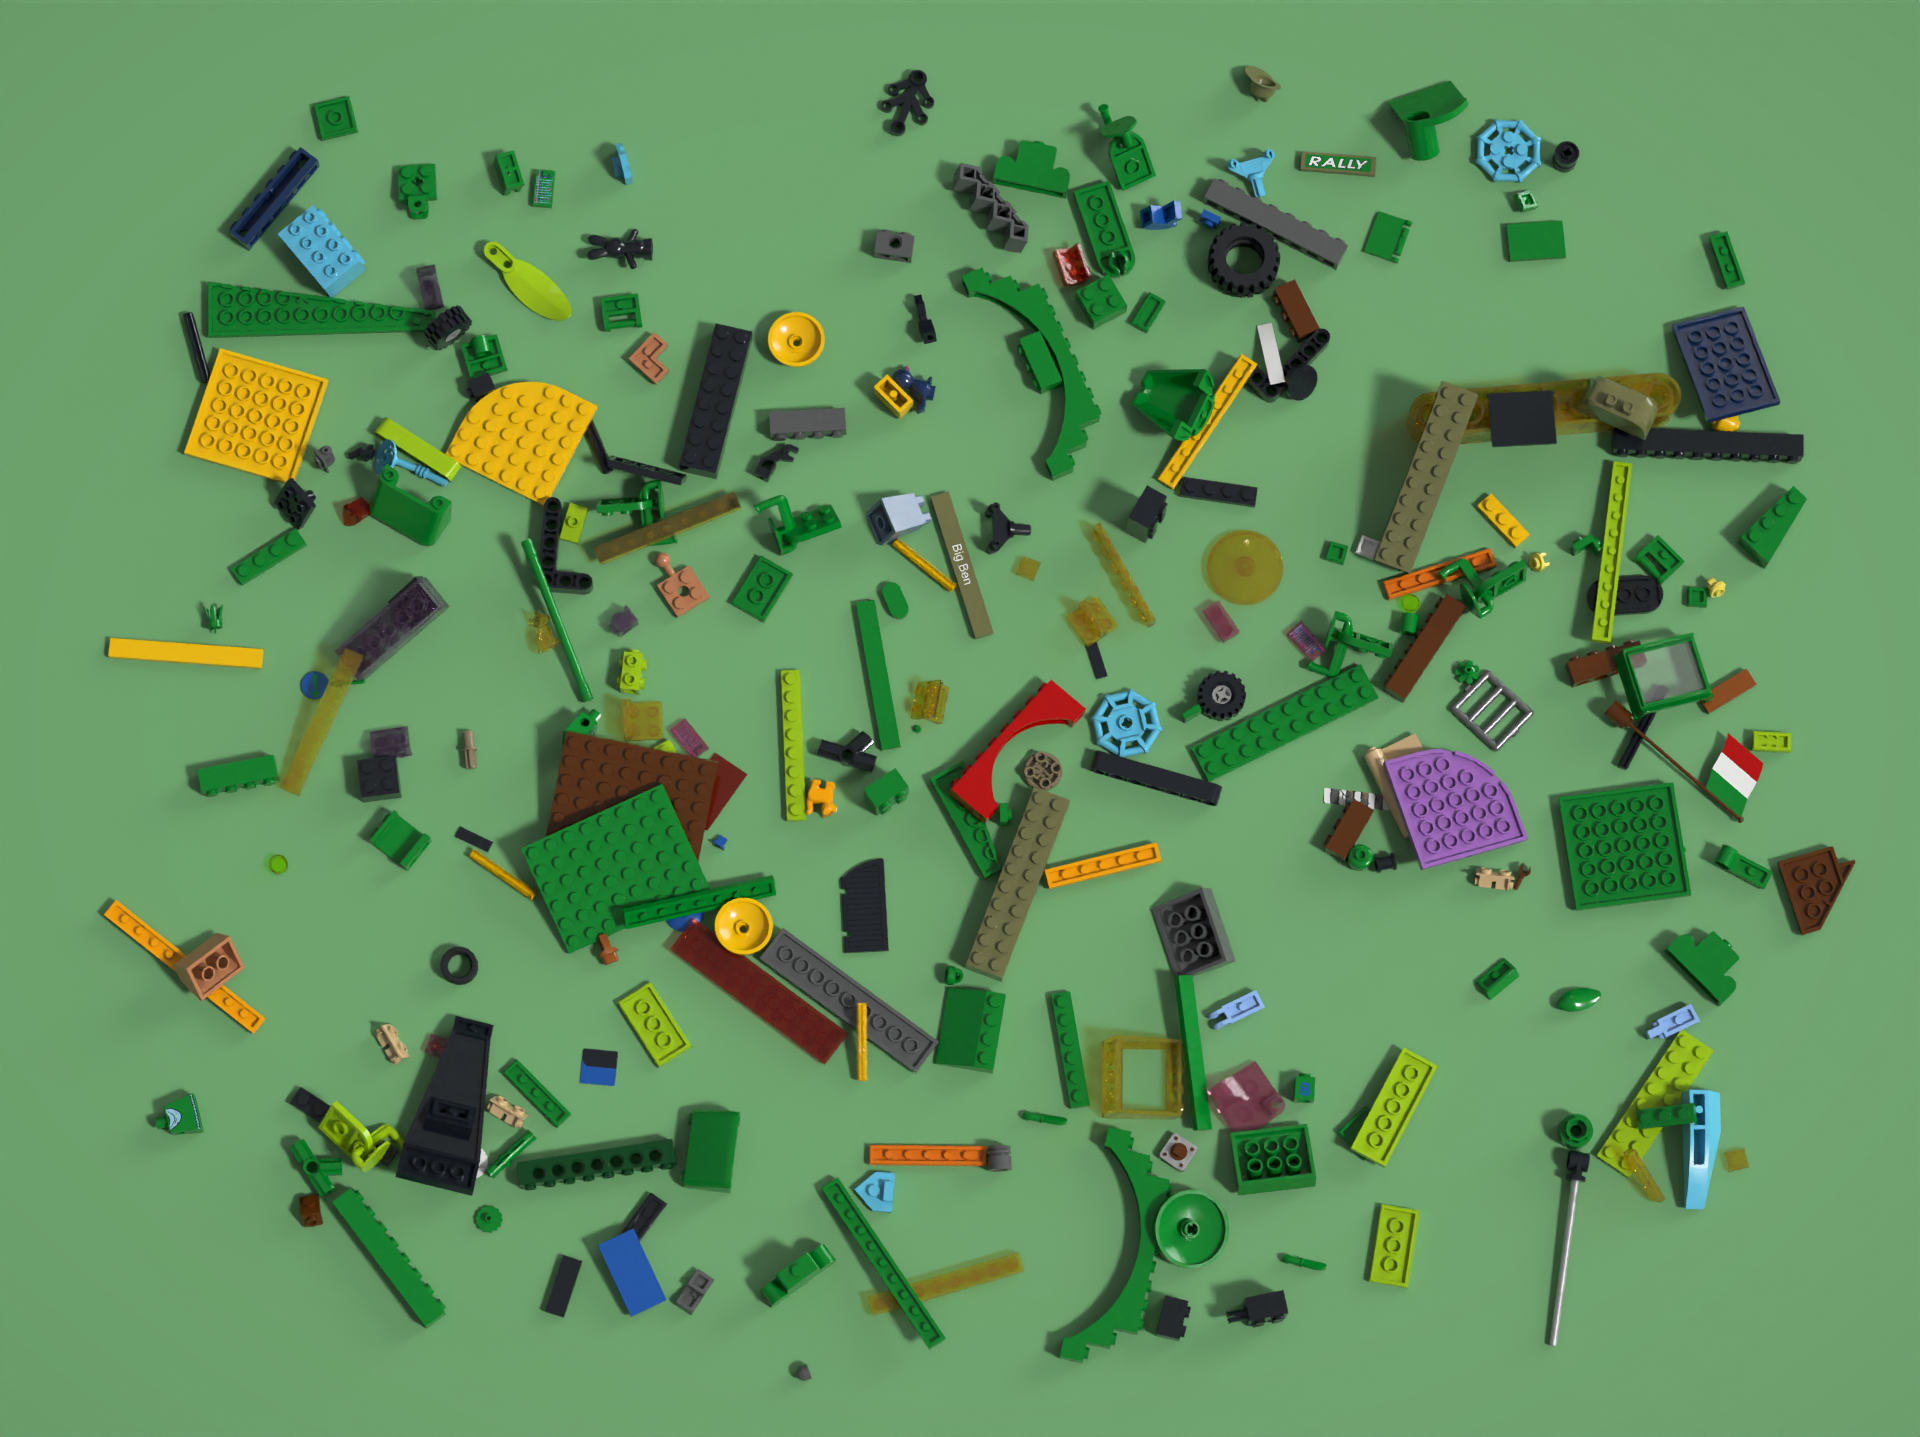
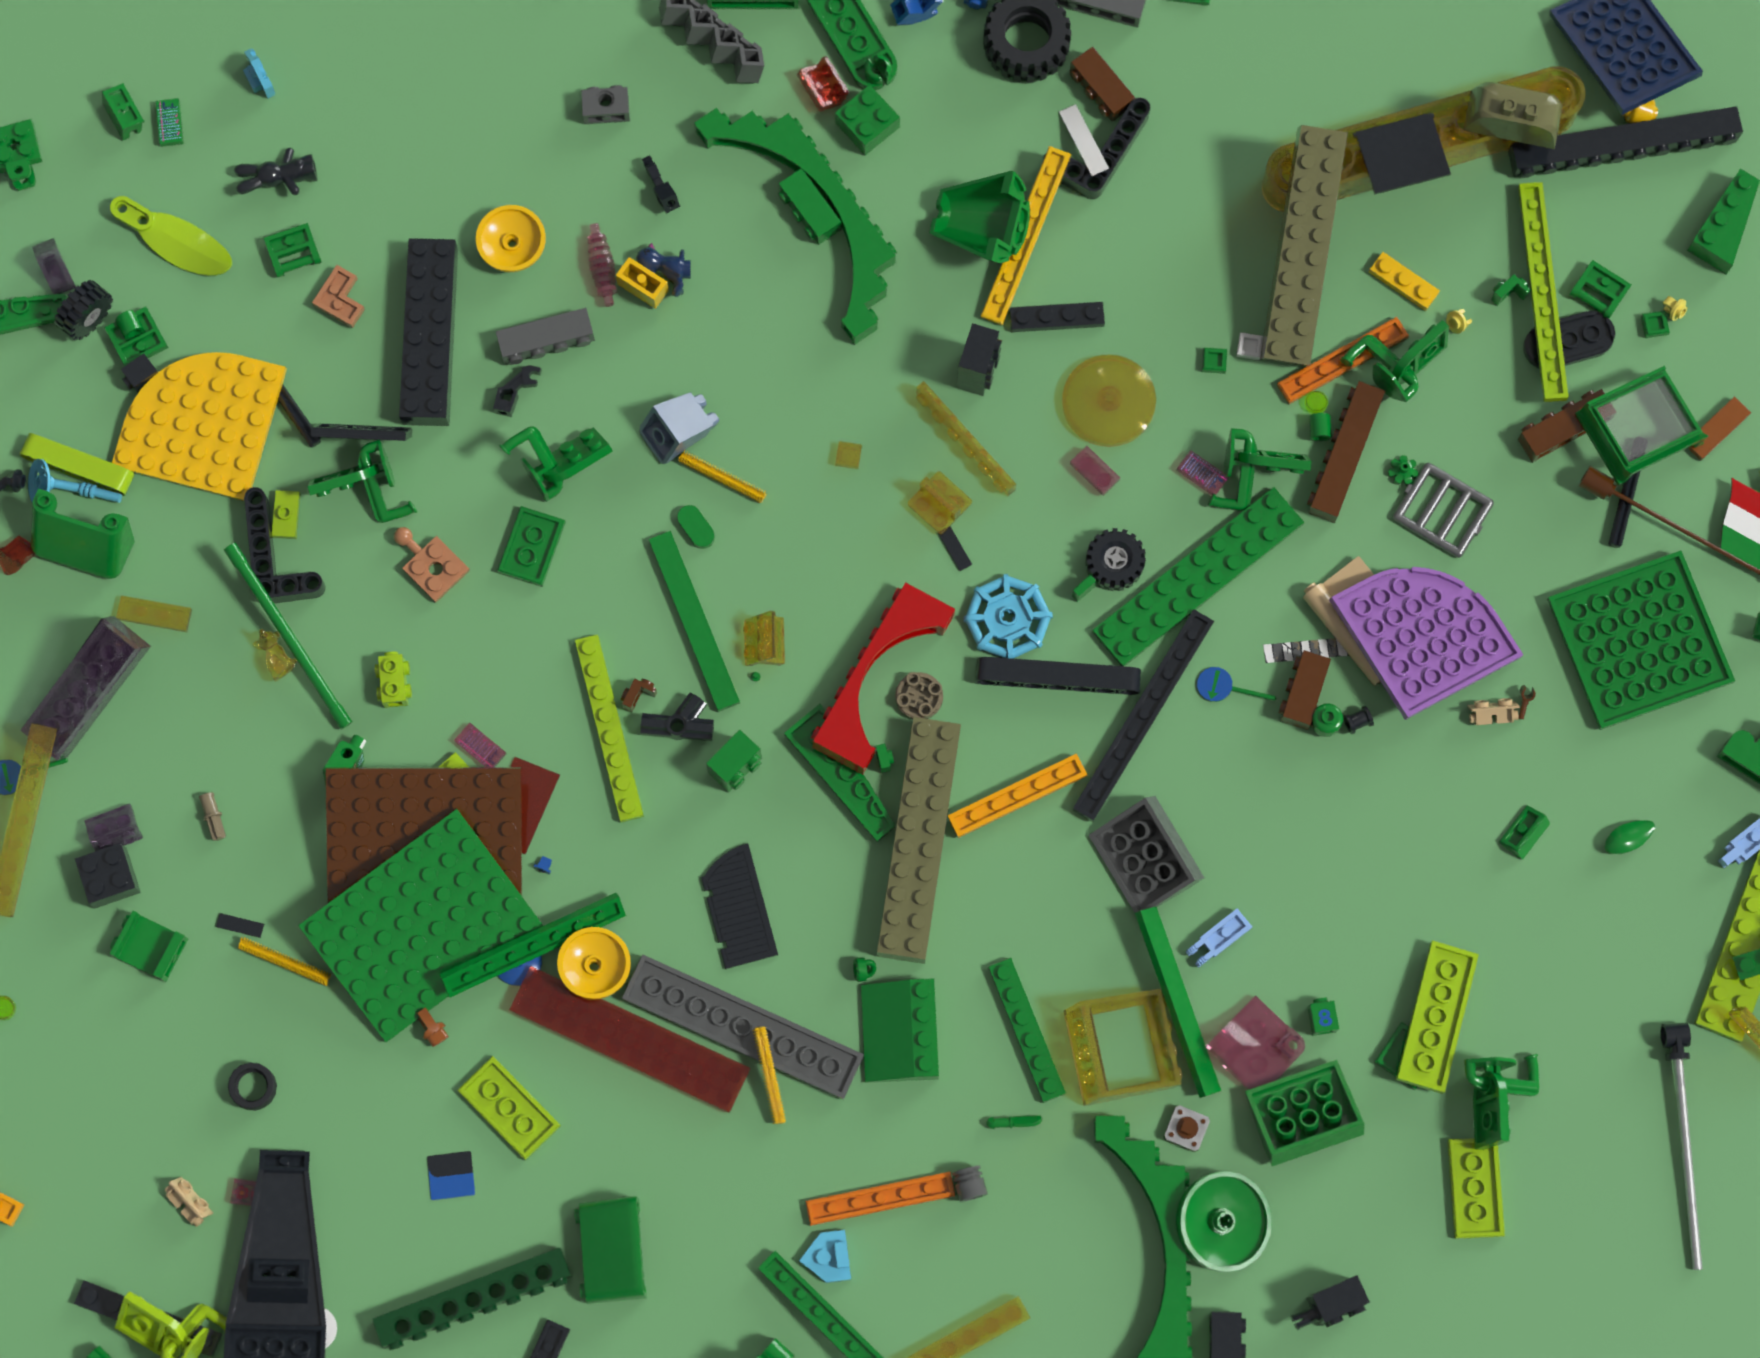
camera: 10 degrees left, 0 degrees up
(455, 580) = (154, 613): none -> clear yellow tile
(510, 1154) = (363, 1308): green pin -> none
(514, 1113) = (338, 1250): tan hinge -> none
(537, 1093) = (380, 1225): green tile -> none
(623, 622) = (370, 621): clear purple brick -> none
(642, 720) = (418, 736): clear yellow bracket -> none
(667, 528) = (400, 496): clear yellow tile -> none
(817, 723) = (631, 696): none -> reddish brown bracket
(821, 796) = (656, 782): light orange animal -> none
(864, 375) = (601, 264): none -> clear pink piece
(962, 565) = (768, 468): olive tile -> none
(1003, 528) = (808, 413): black axle -> none
(1148, 312) = (926, 122): green tile -> none
(1216, 823) = (1143, 715): none -> black plate
(1280, 811) = (1216, 684): none -> blue piece
(1300, 381) = (1127, 165): black tile -> none
(1303, 1262) = (1373, 1232): green piece -> none
(1421, 1174) = (1491, 1096): none -> green plate
(1580, 1122) = (1675, 993): green piece -> none

